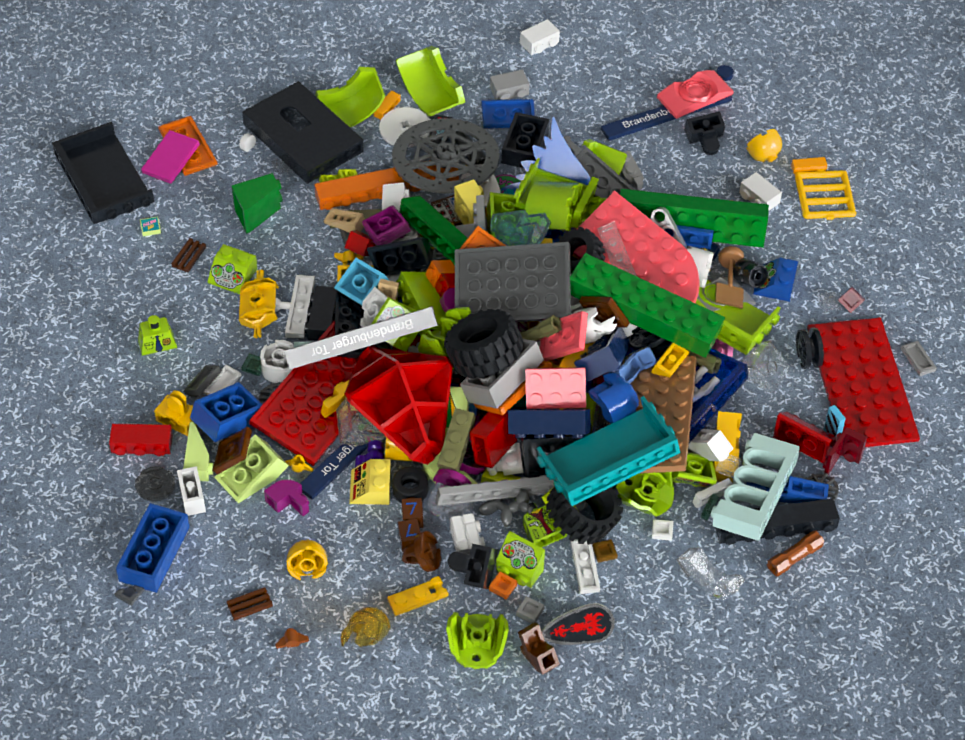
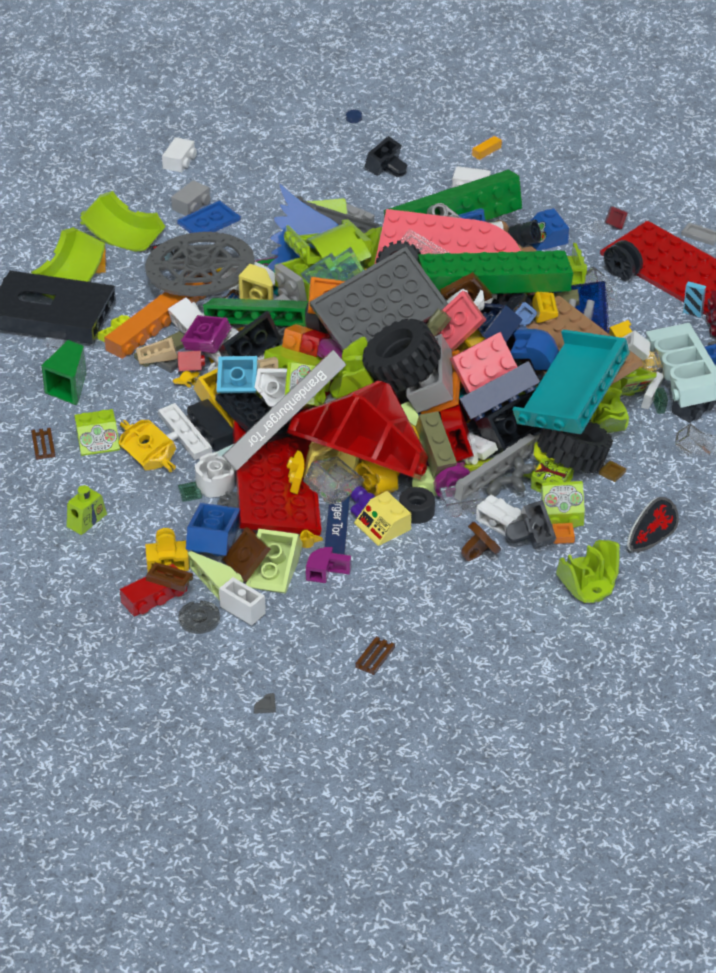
camera: 35 degrees left, 10 degrees down
(153, 547) = (254, 657): blue brick -> none
(160, 447) = (168, 579): none -> reddish brown tile
(202, 380) = (158, 519): dark grey tile -> none
(226, 378) = (176, 517): white tile -> none
(247, 142) = (5, 338): white tile -> none
(291, 639) = (438, 658): dark orange piece -> none
(306, 556) = (393, 591): yellow cylinder -> none
(369, 624) = (492, 614): clear yellow helmet -> none
(393, 122) = (119, 267): white piece -> none
(407, 531) = (453, 537): reddish brown brick -> none
(412, 509) = (440, 522): reddish brown brick -> none
(417, 596) = (504, 577): yellow plate -> none
(522, 135) = (250, 225): black brick -> none
(530, 610) = (601, 534): light grey plate -> none
(536, 650) = (639, 561): reddish brown brick -> none
(585, 567) = (609, 489): white tile -> none
(646, 120) = (337, 163): dark blue tile -> none
(662, 529) = (639, 435): white tile -> none
(694, 93) = (347, 138): coral slope -> none
(765, 147) = (444, 148): yellow cylinder -> none
(796, 431) = (674, 315): red slope -> none
(829, 215) = (537, 157): yellow bar -> none

